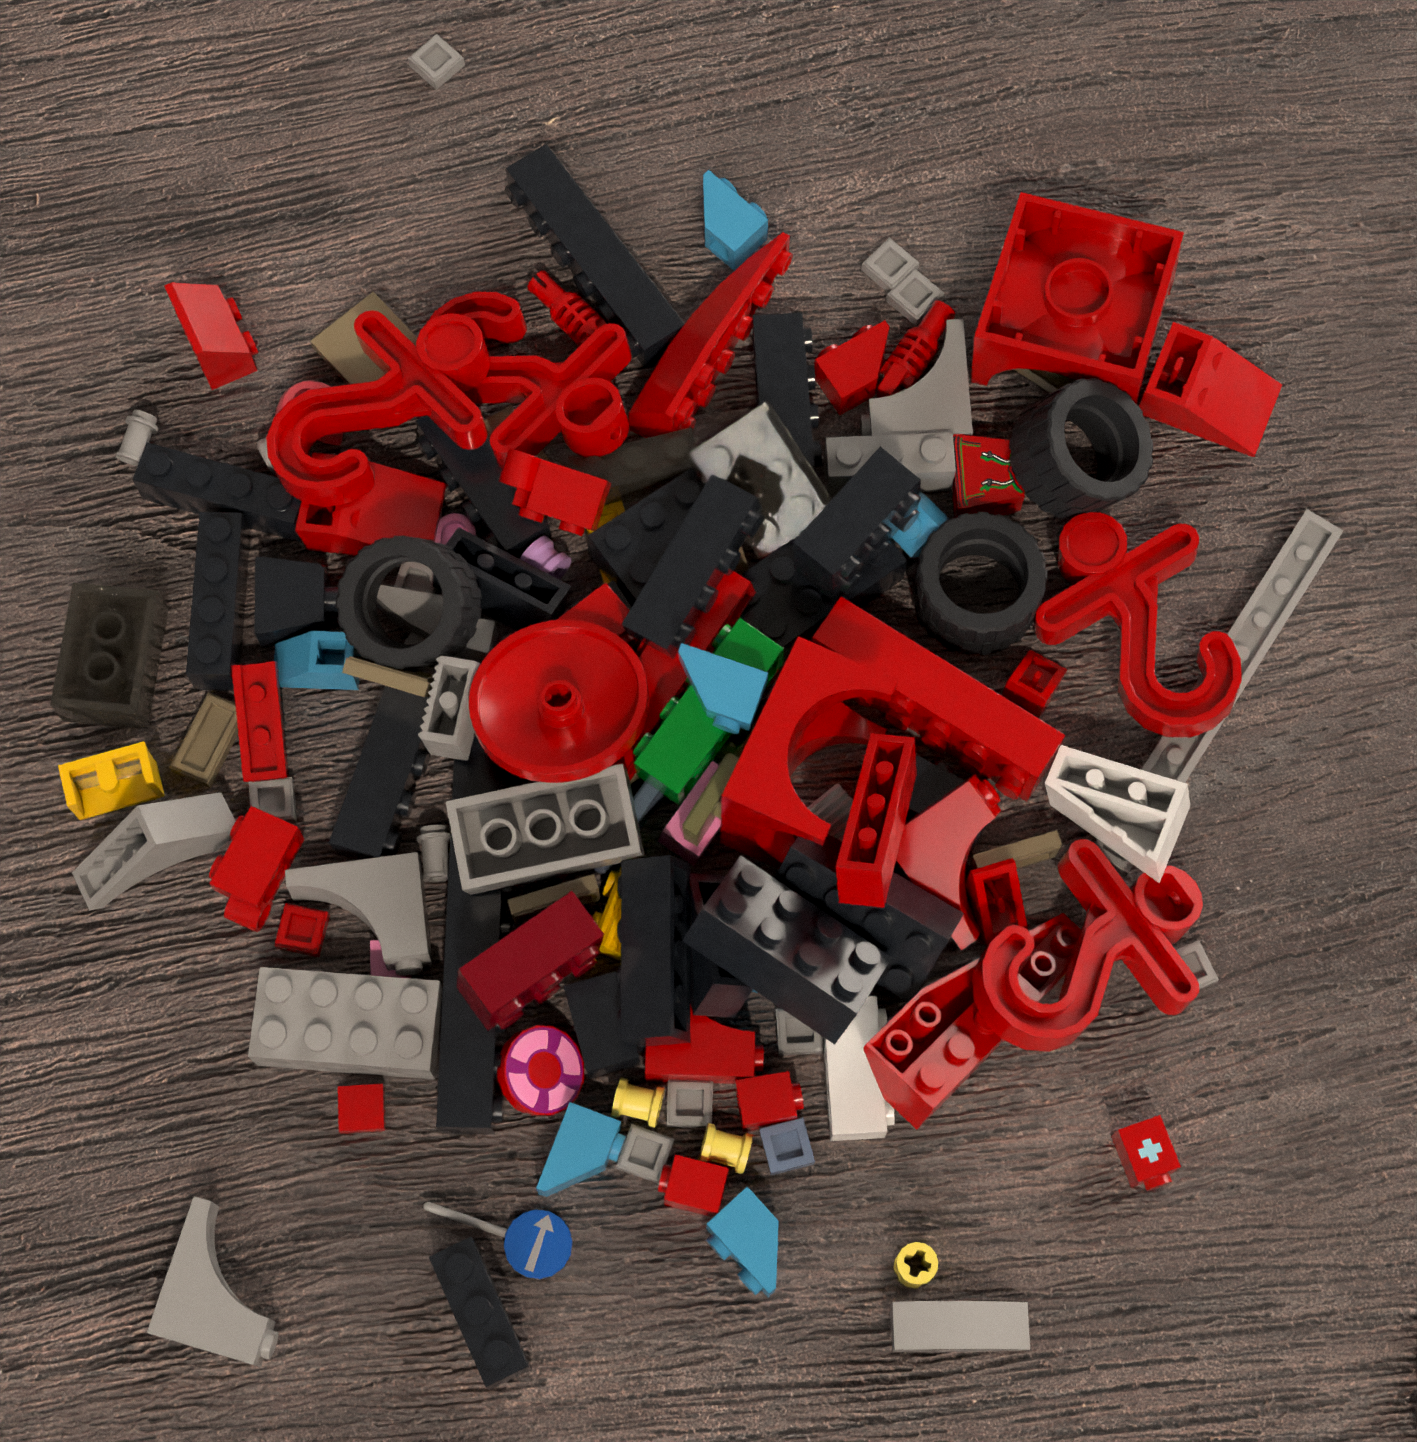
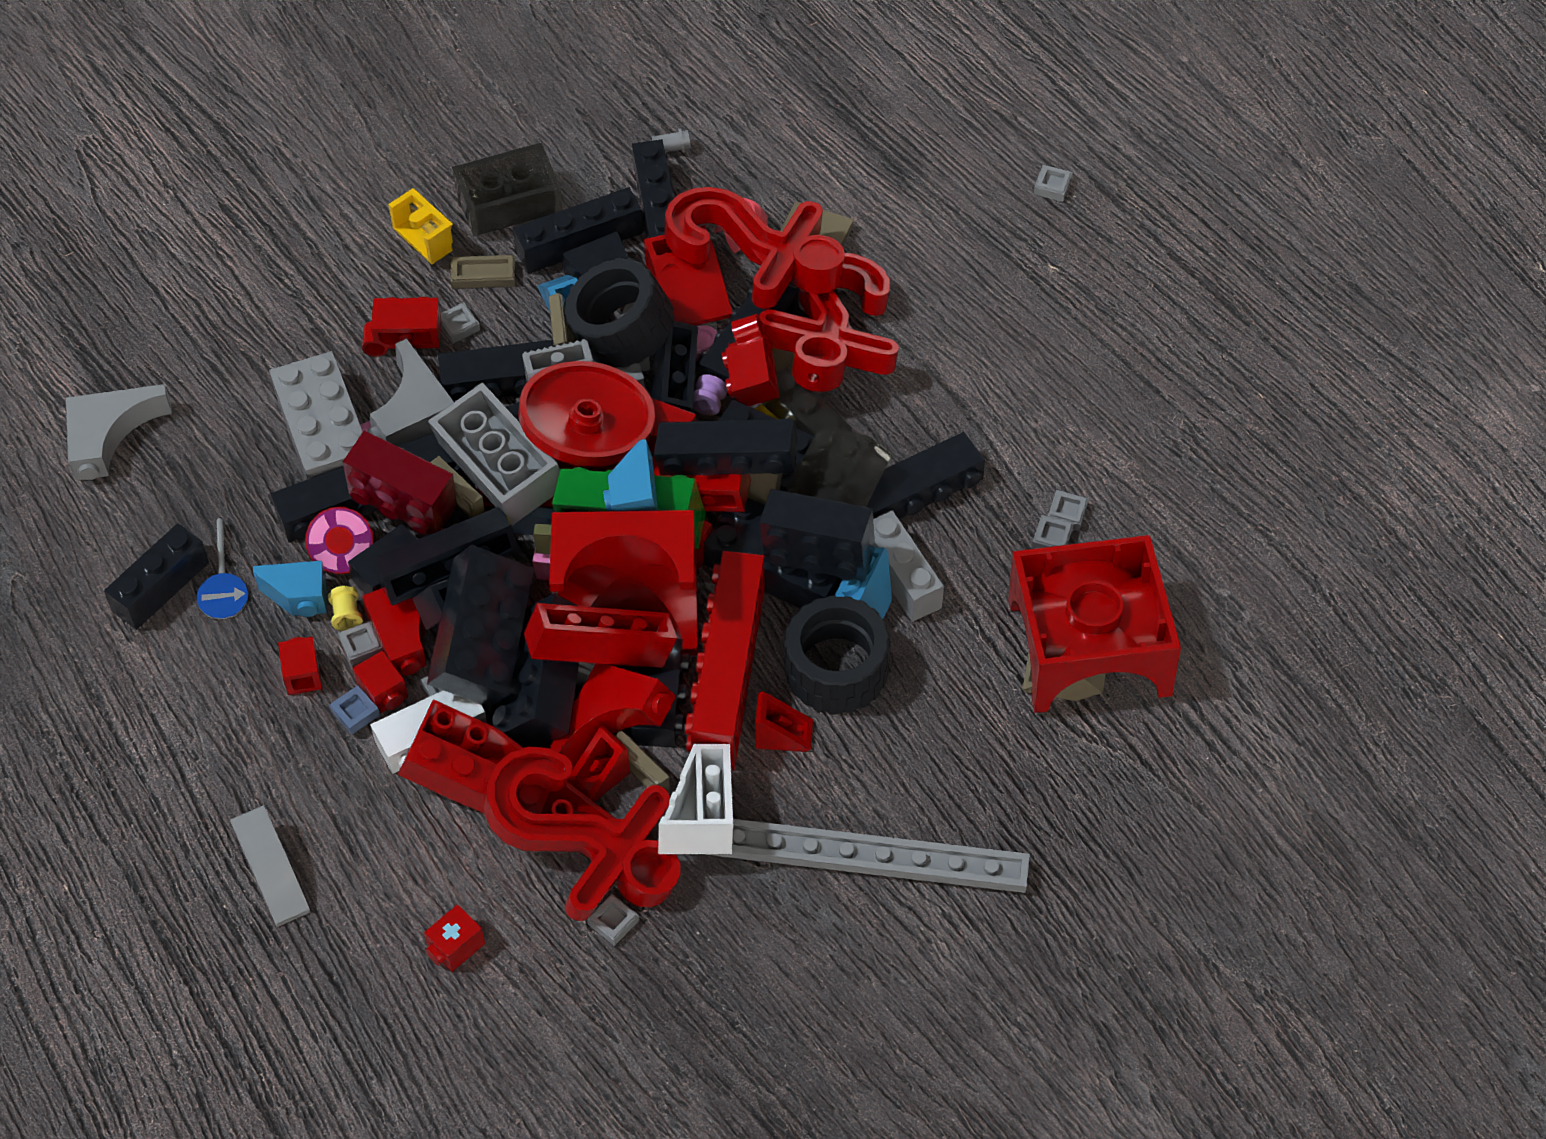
camera: 65 degrees right, 15 degrees down
(153, 840) = (394, 263): light grey arch -> none
(213, 332) = (764, 141): slope -> none
(260, 721) = (506, 288): red hinge -> none
(302, 930) = (377, 376): red tile -> none
(361, 1108) = (270, 458): red tile -> none
(566, 308) = (908, 333): red hinge -> none
(592, 253) = (957, 329): black brick -> none
(645, 1153) = (314, 625): light grey tile -> none
(706, 344) = (935, 418): red wedge -> none
(725, 1148) = (335, 672): light yellow bush -> none
(730, 223) = (1033, 394): dark azure slope -> none
(750, 1237) = (277, 714): dark azure slope -> none
(852, 370) = (968, 517): red slope -> none
(914, 351) = (994, 548): red hinge -> none
(929, 1260) = (294, 818): light yellow bush -> none
(934, 403) = (967, 577): light grey arch -> none
(984, 477) = (929, 634): red torso -> none
(1113, 427) = (1016, 655): black tyre -> none
(1126, 588) = (887, 749): red piece -> none
(1209, 391) = (1088, 748): red slope -> none

